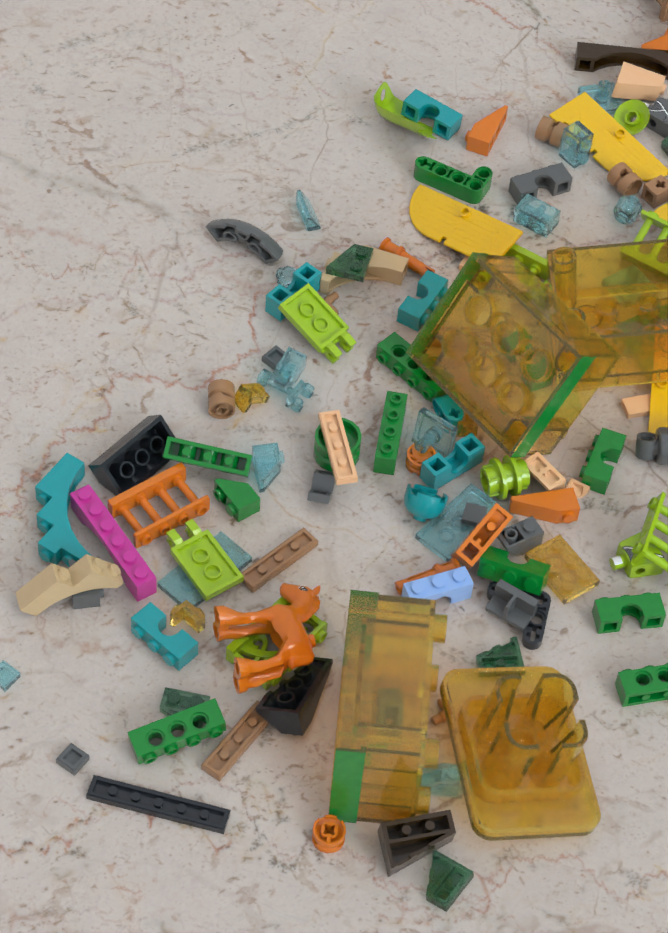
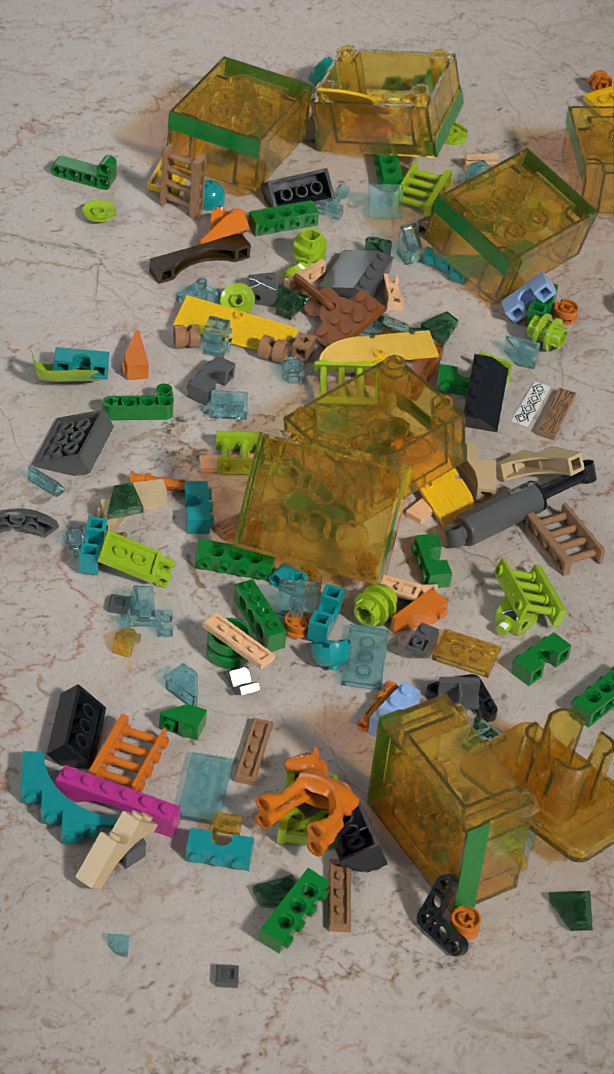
camera: 35 degrees left, 10 degrees down
(158, 804) = (320, 972): black tile -> none
(203, 561) = (200, 778): lime tile -> none
(207, 456) = (138, 699): green brick -> none
(221, 399) = (107, 653): medium nougat wheel -> none
(297, 816) = (435, 915): none -> black beam
(363, 188) = (75, 443): none -> dark grey slope
(413, 838) = (529, 890): dark brown wedge -> none
(459, 224) = (179, 436): yellow door -> none
(473, 514) = (374, 644): dark grey tile -> none
(482, 536) = (399, 654): orange slope -> none
(527, 577) = (426, 672): green arch -> none
(638, 83) = (221, 271): light nougat slope -> none

